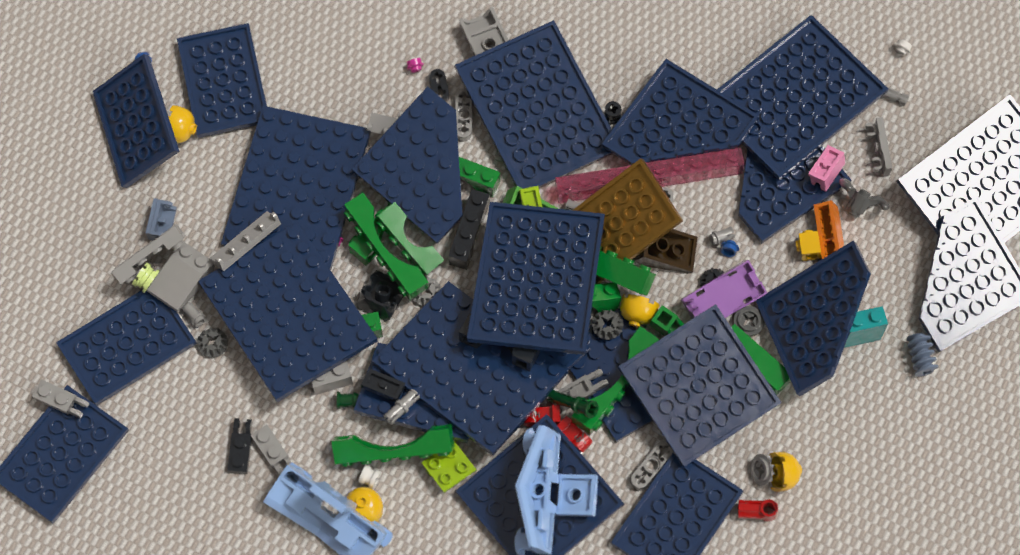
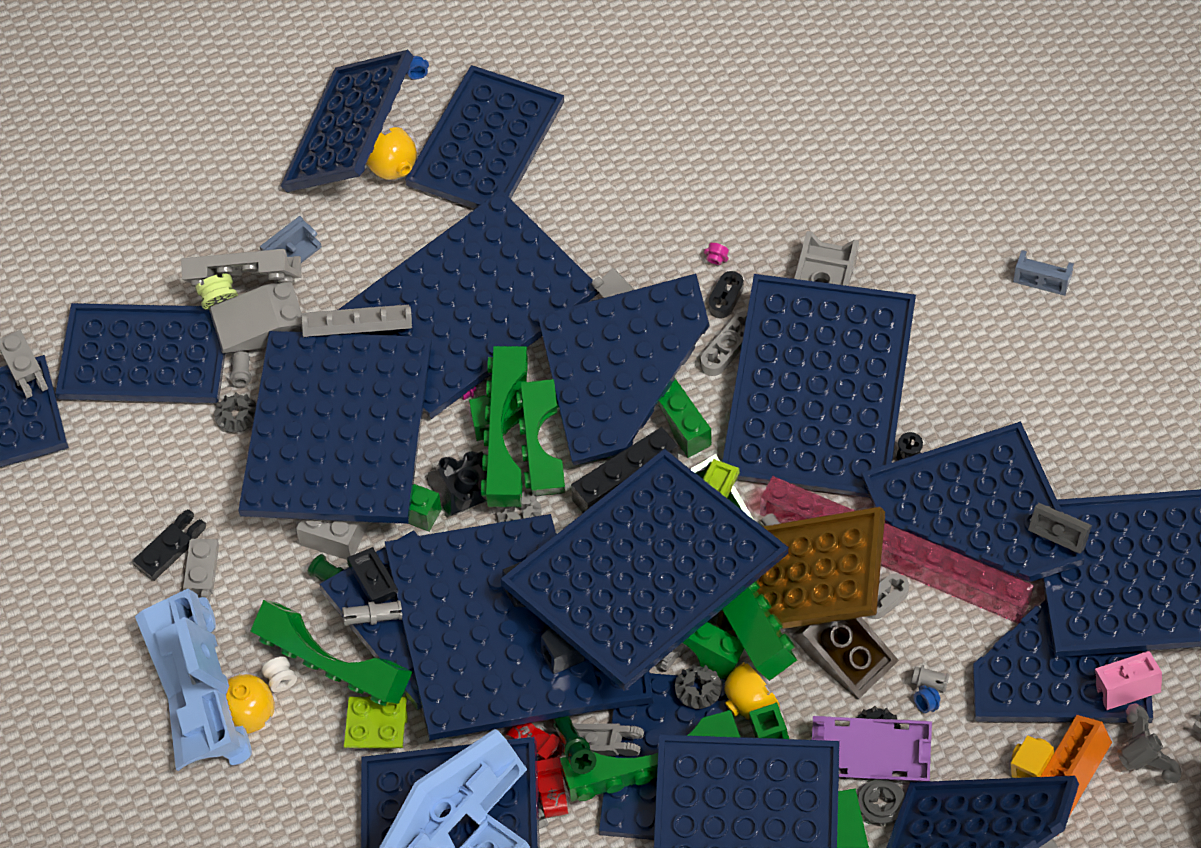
camera: 40 degrees right, 10 degrees down
(736, 106) = (1059, 528): none -> dark grey plate

